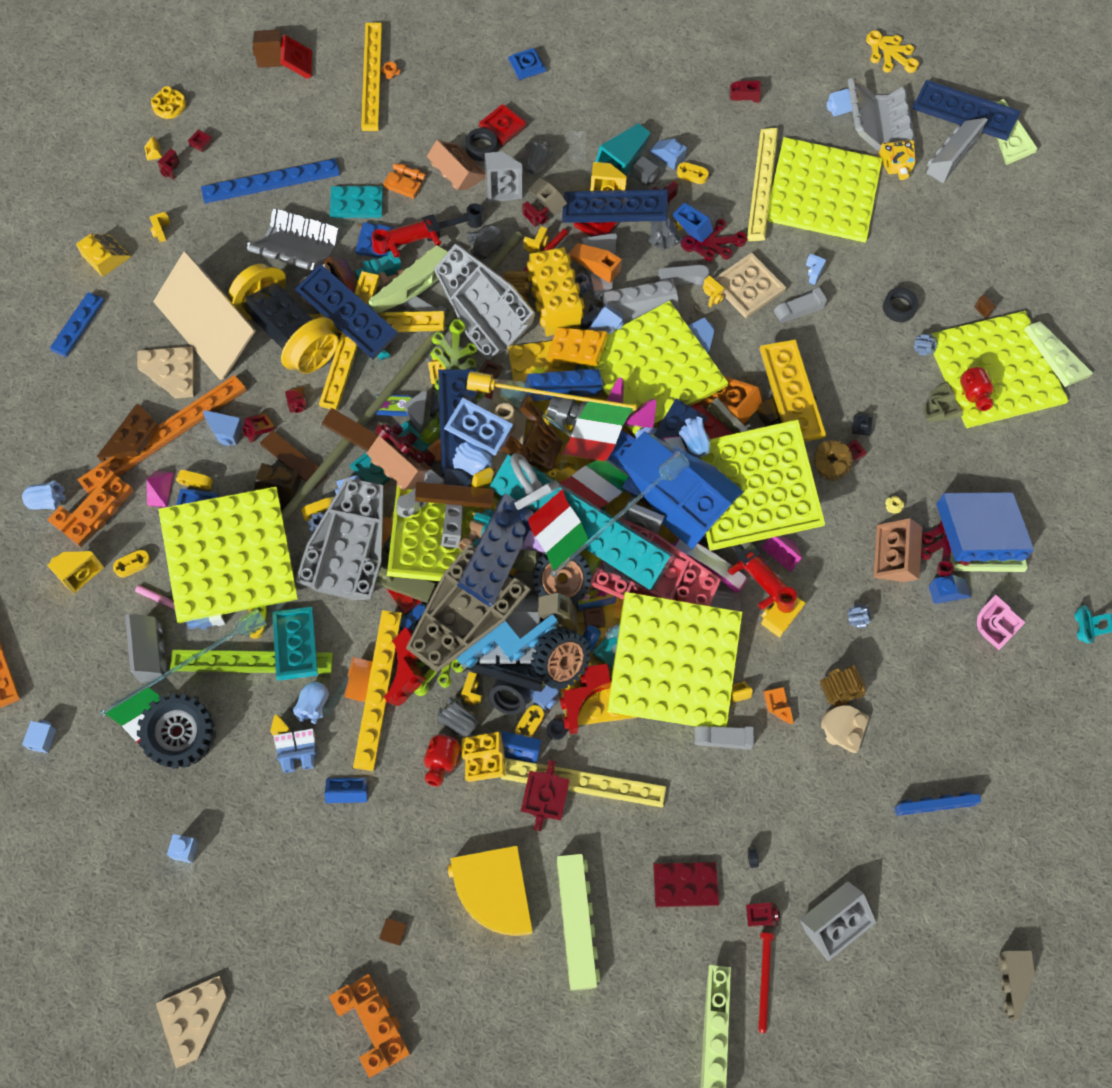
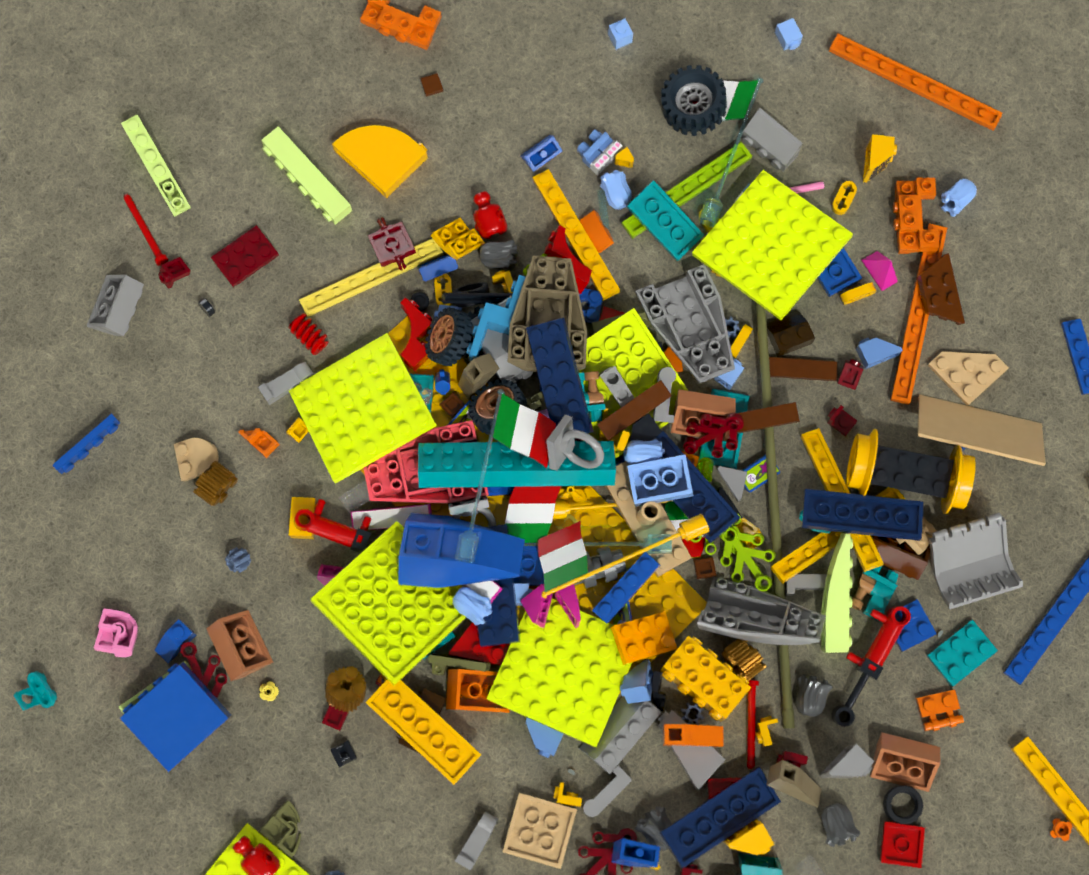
camera: 145 degrees right, 10 degrees up
(541, 442) = (602, 514): reddish brown wing -> none
(674, 766) = (308, 334): none -> red piece

